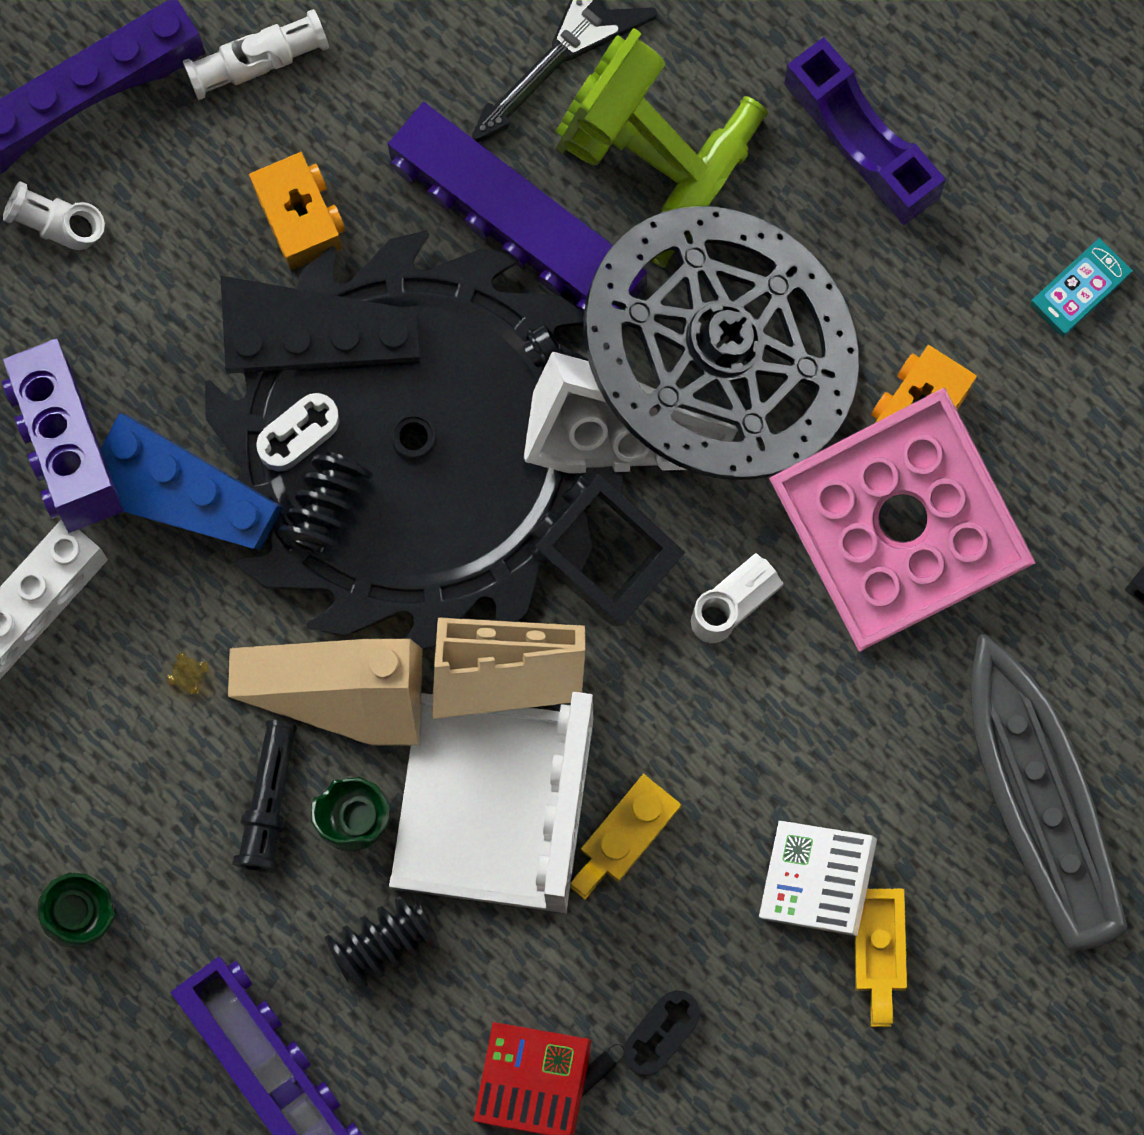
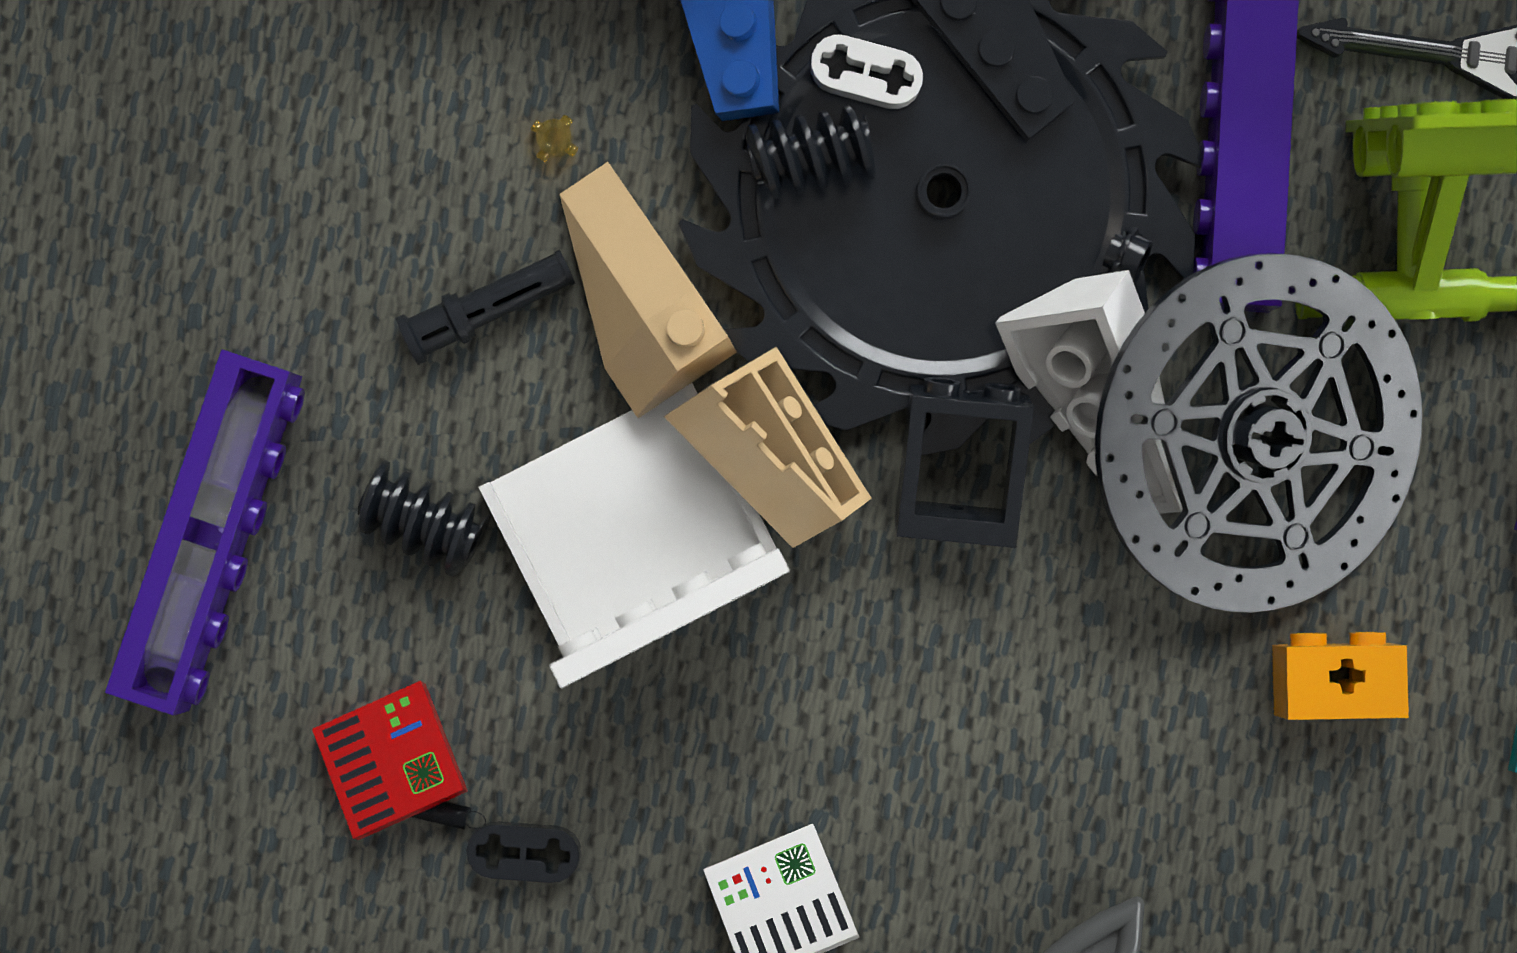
camera: 50 degrees right, 10 degrees up
(75, 910) = (242, 198): dark green hair -> none
(351, 814) = (522, 398): dark green hair -> none
(625, 834) = (694, 681): yellow plate -> none
(737, 597) = (1008, 628): white piece -> none
(888, 582) = (1218, 824): bright pink piece -> none

